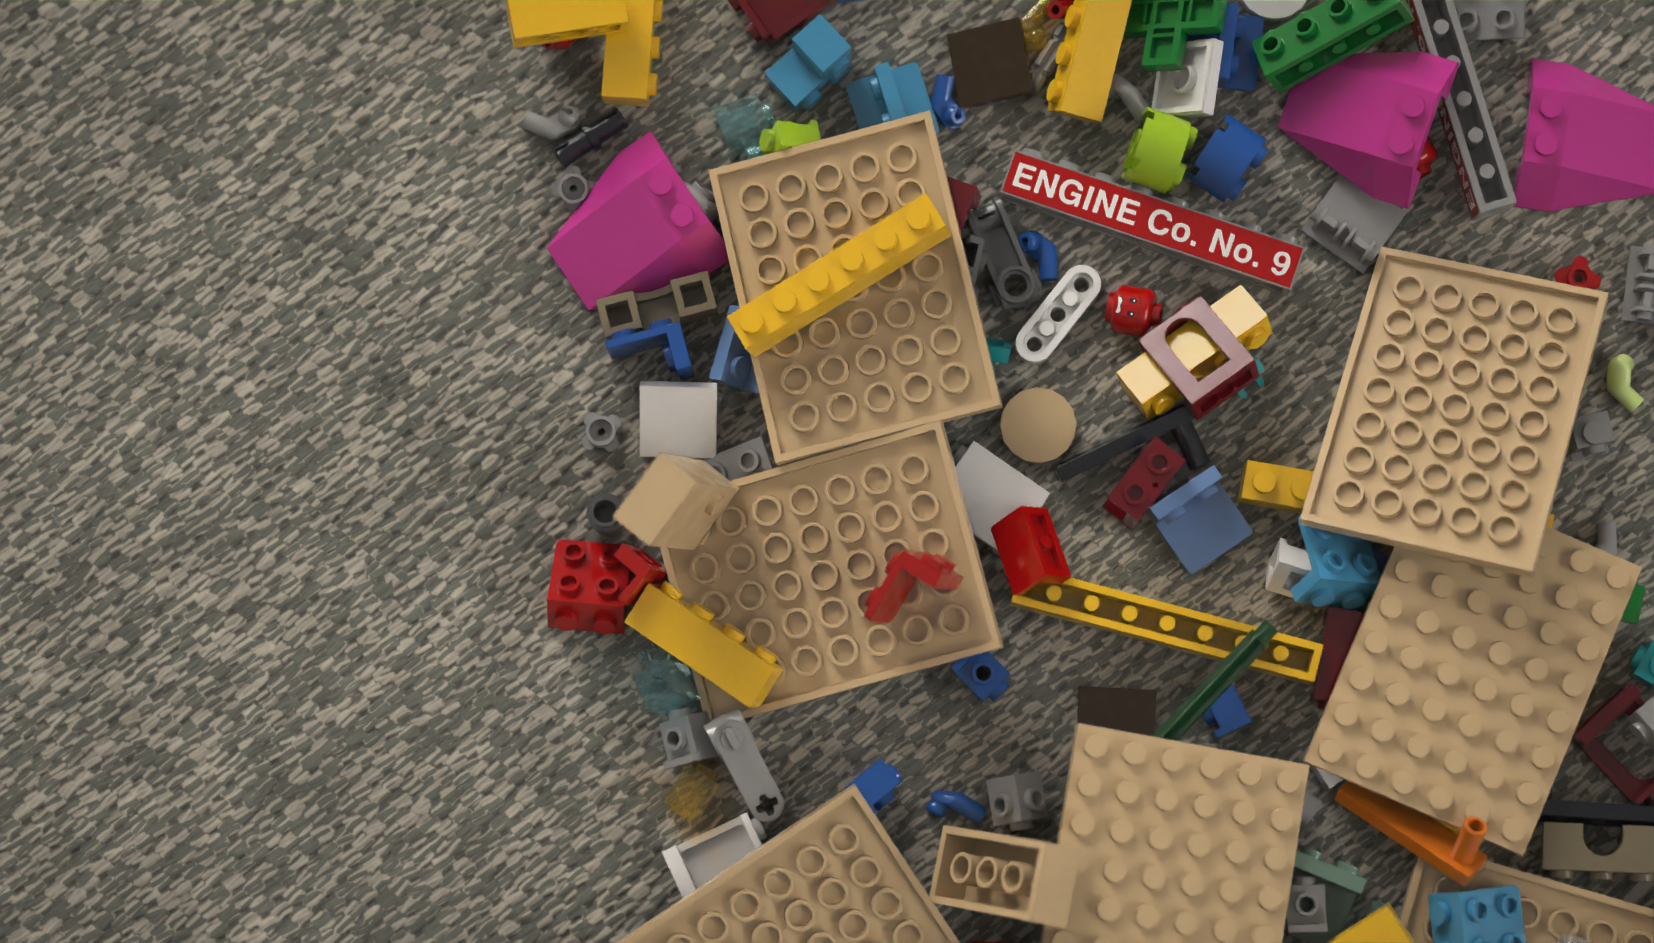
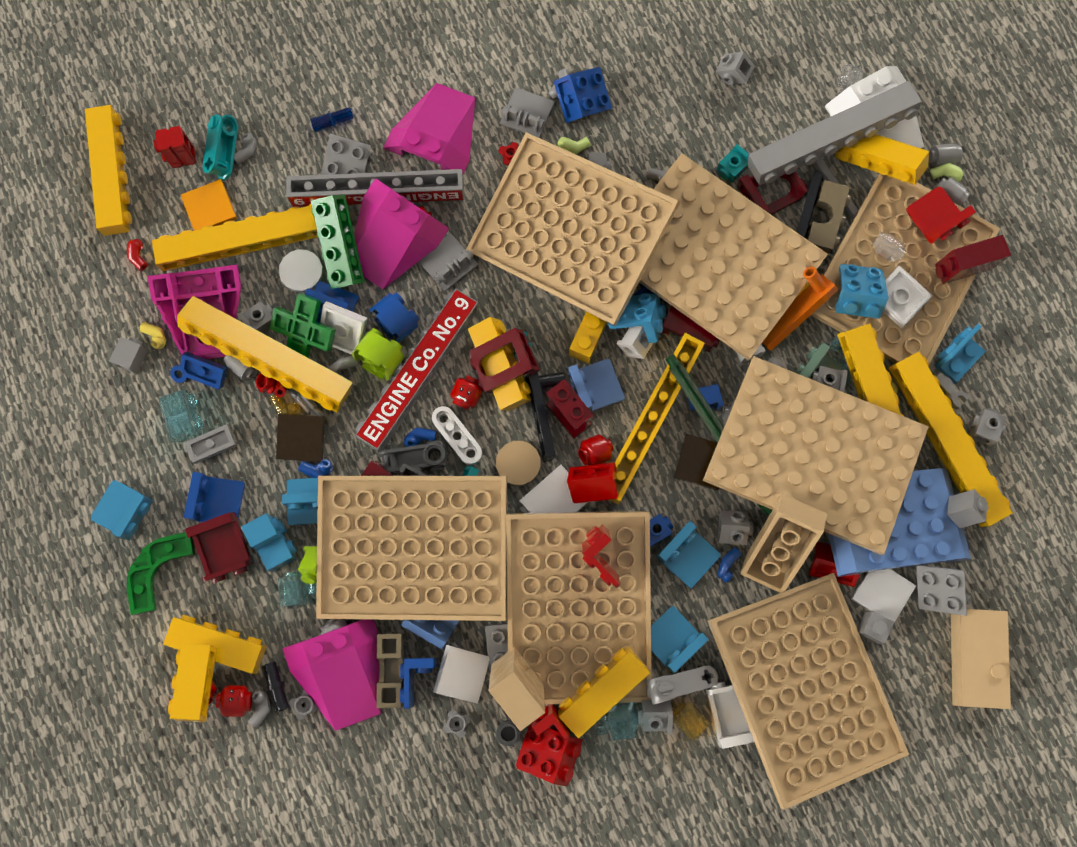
camera: 80 degrees left, 5 degrees down
(554, 81) = (234, 701): none -> red head
(814, 742) = (675, 639): none -> dark azure bracket
(839, 275) = (403, 553): yellow brick -> none
(877, 784) = (707, 608): blue brick -> none
(954, 737) = (688, 555): none -> dark azure bracket
(1089, 546) = (595, 450): none -> red head

